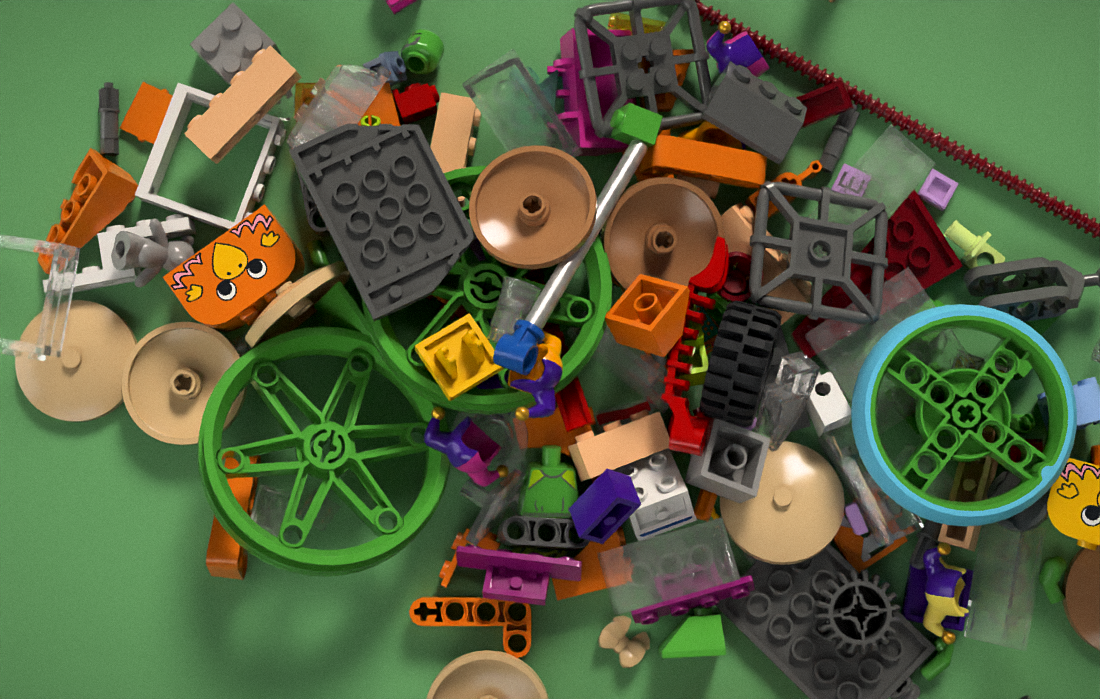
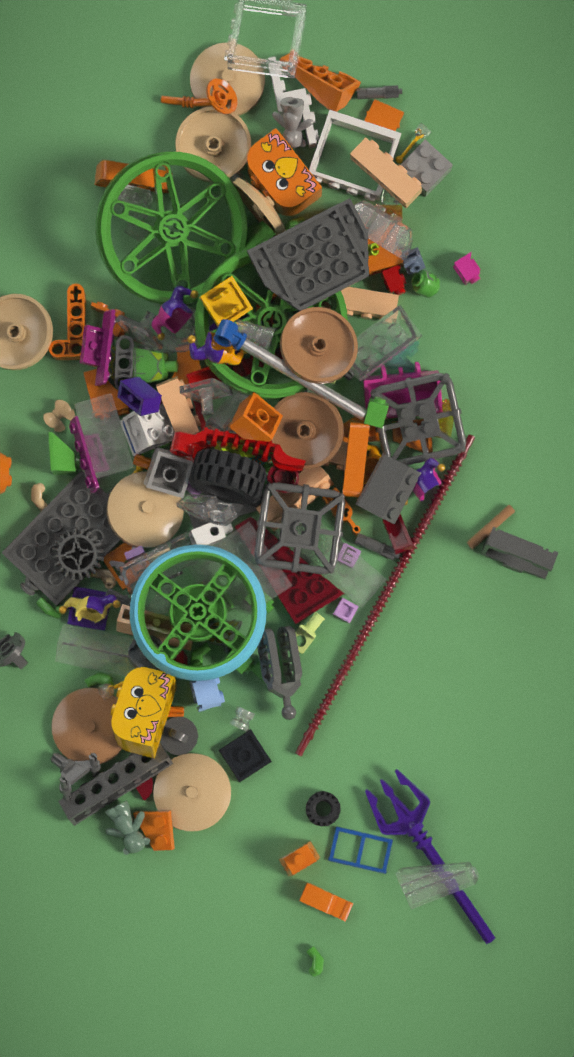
camera: 85 degrees right, 0 degrees up
(109, 374) = (216, 99): none -> orange dish
(177, 54) = (421, 132): none -> hinge
(600, 396) = (206, 392): none -> clear tile
(756, 679) = (36, 496): none -> tan arm
(889, 564) = (106, 576): none -> tan arm
(1073, 565) = (107, 690): none -> clear hinge

